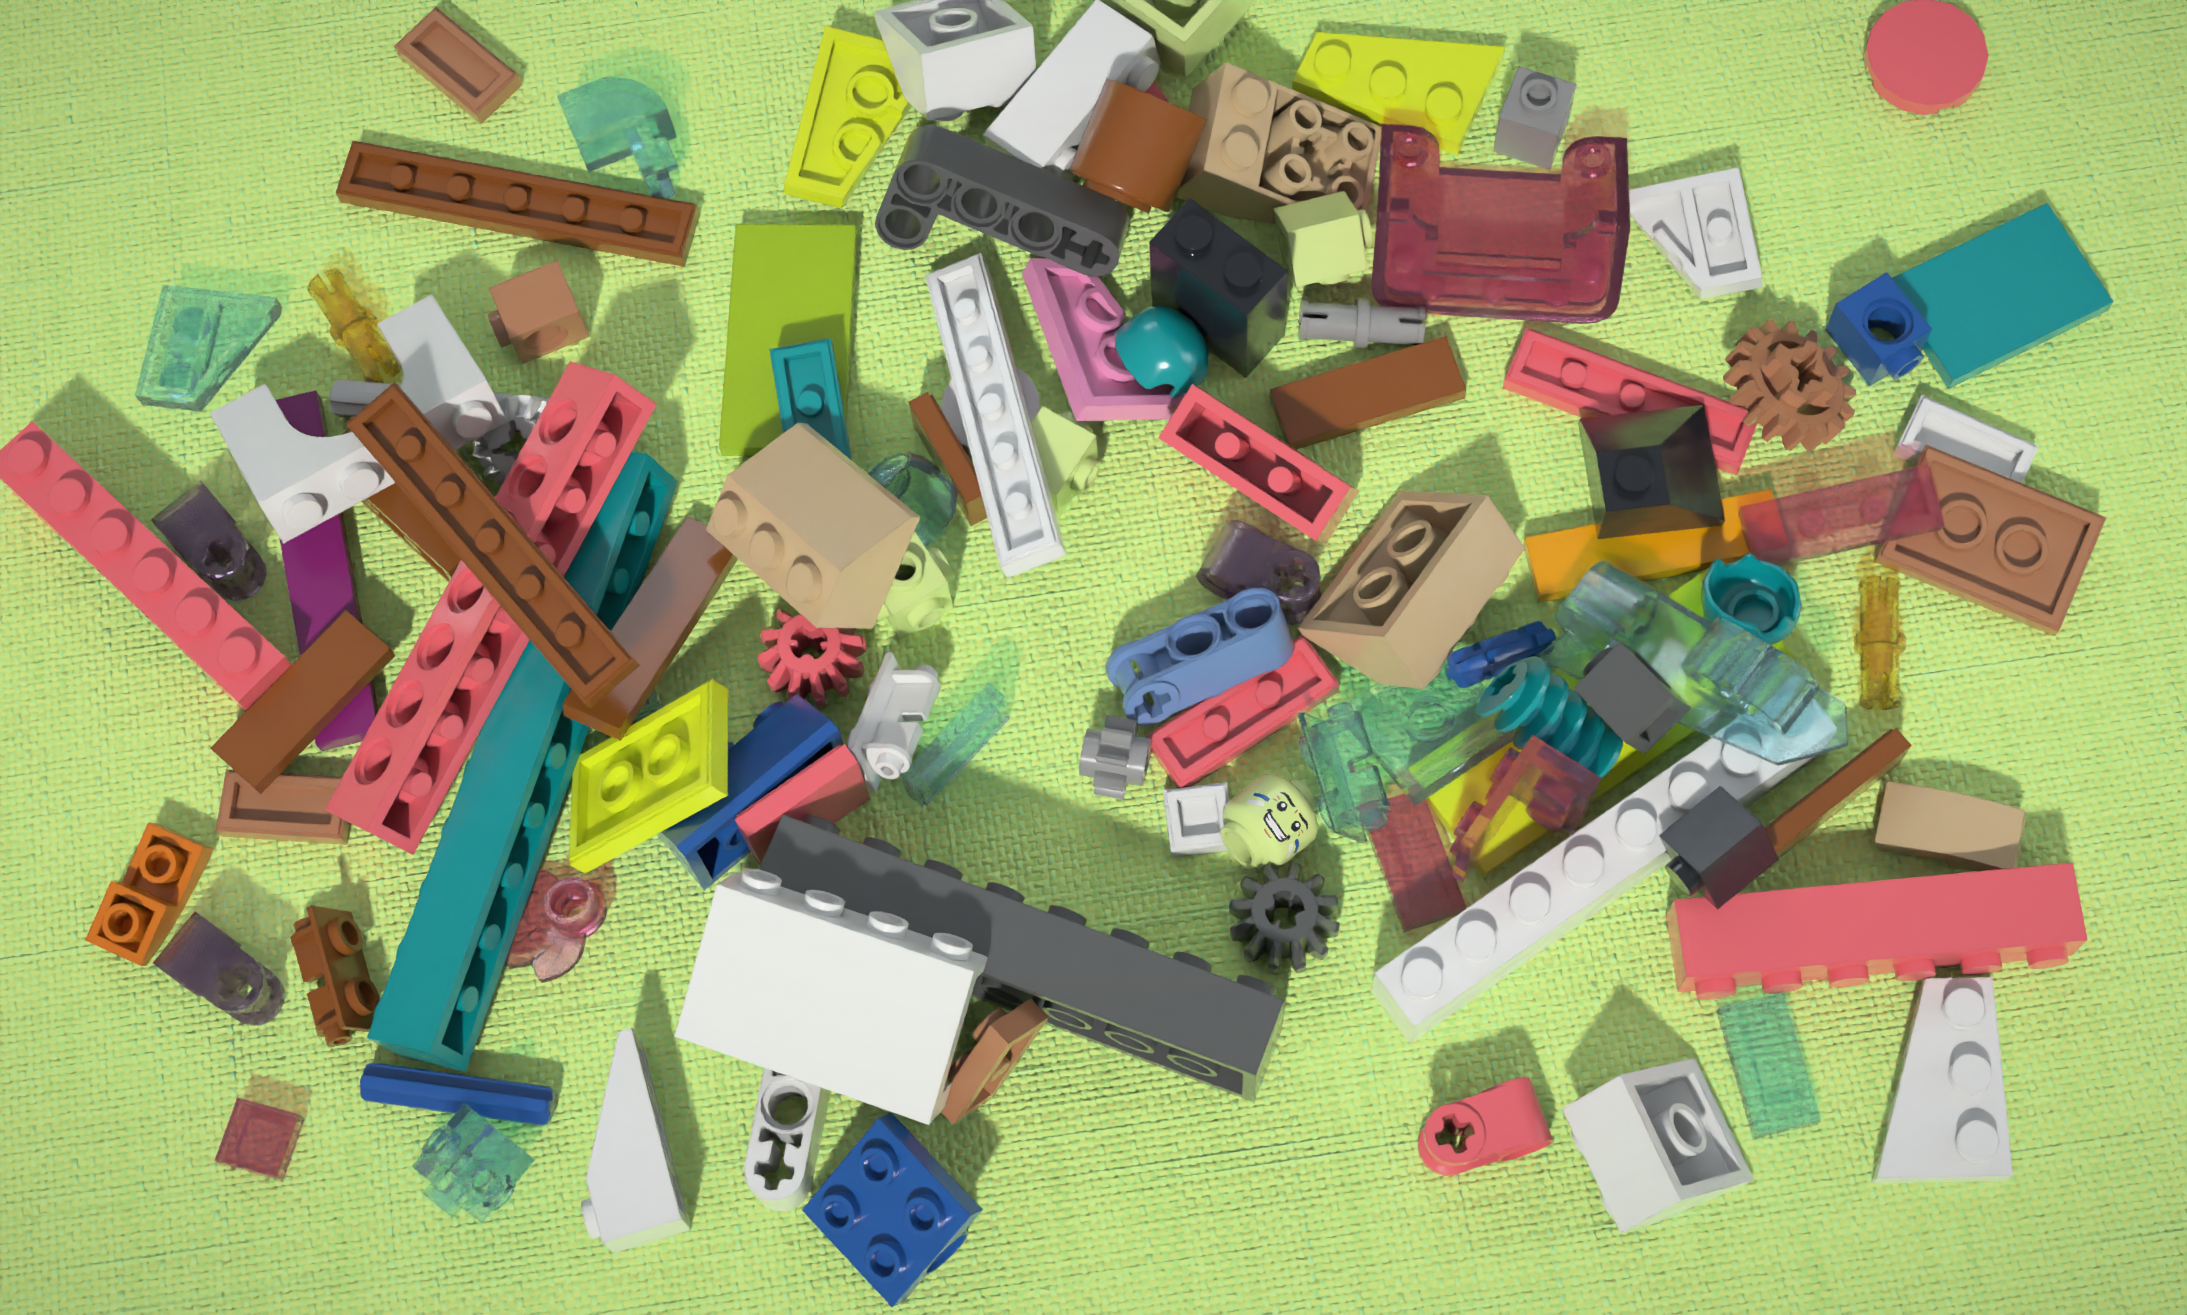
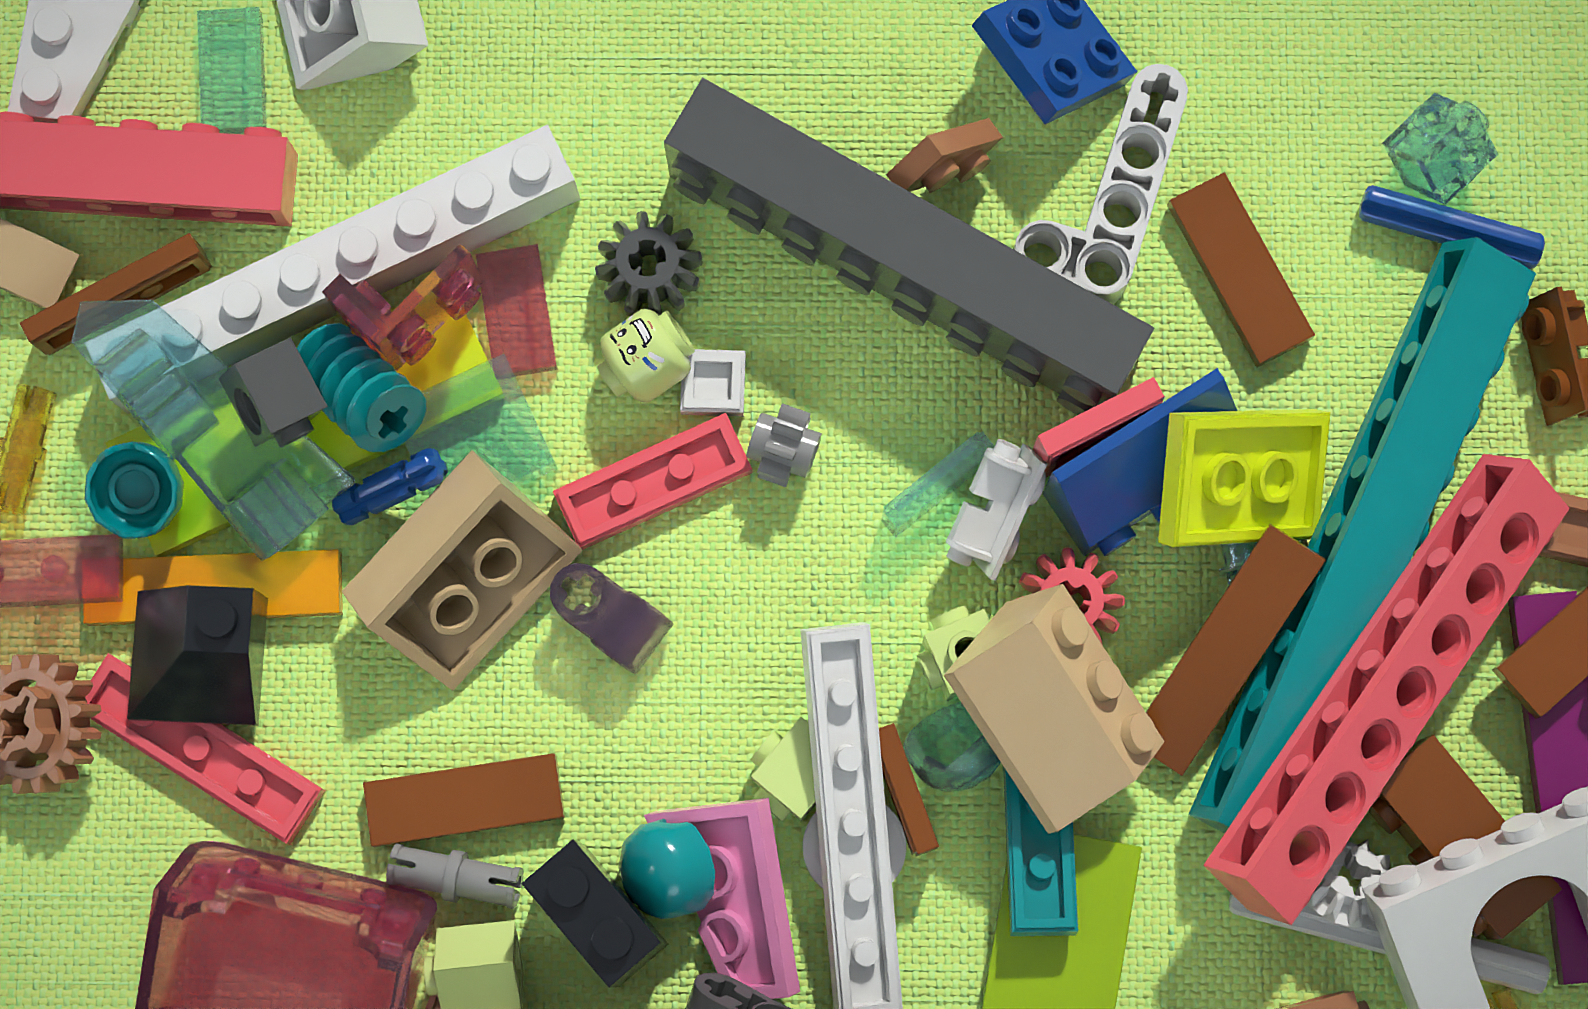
camera: 175 degrees left, 10 degrees up
(493, 545) = (1389, 719): dark orange tile -> none
(547, 933) = (1354, 363): clear pink plate -> none
(631, 1162) = (1289, 119): white slope -> none
(654, 995) = (1240, 269): none -> dark orange tile
(830, 994) = (1087, 210): white panel -> none
(1201, 655) = (719, 535): medium blue piece -> none
(1259, 464) = (589, 721): coral brick -> none
(1348, 798) = (571, 422): clear light blue hinge -> none
(1495, 1124) = (494, 45): coral piece -> none
(1702, 230) = (78, 921): white wing -> none
(1717, 848) = (230, 238): black brick -> none

